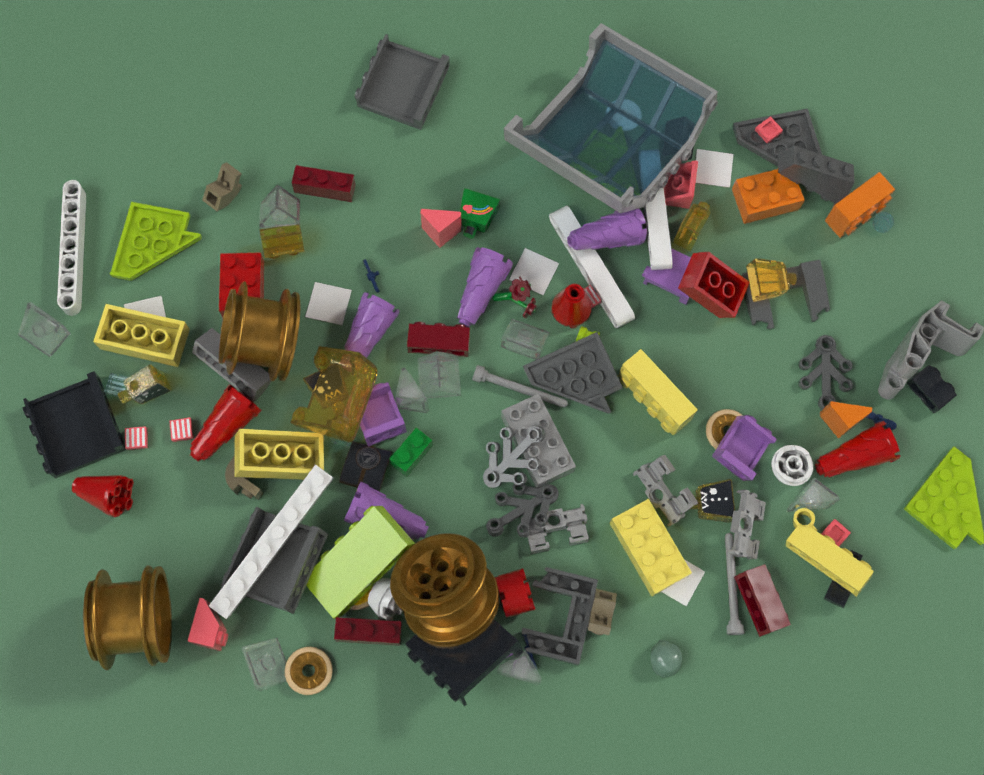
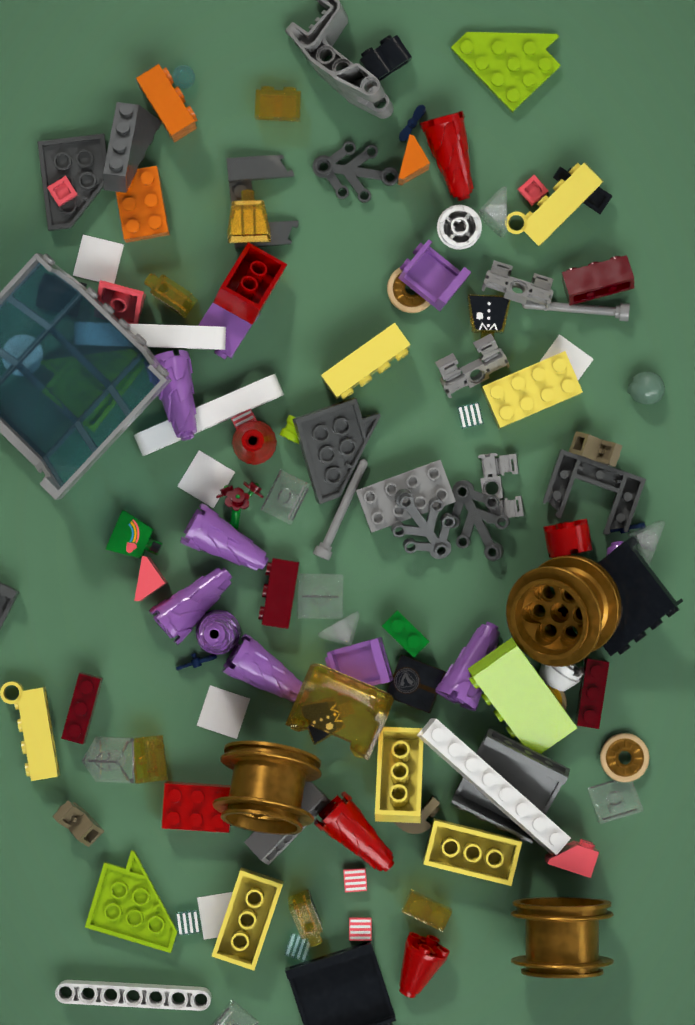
camera: 80 degrees left, 15 degrees up
(138, 288) = (188, 922): none -> tile
(154, 494) = (426, 910): none -> clear yellow brick
(210, 530) = (472, 852): none -> light yellow brick
(302, 149) = (37, 731): none -> light yellow hinge
(399, 286) = (227, 628): none -> medium lavender cone
(420, 261) = (188, 606): none -> medium lavender cone
(618, 495) = (470, 415): none -> tile
(874, 300) = (278, 104): none -> clear yellow brick

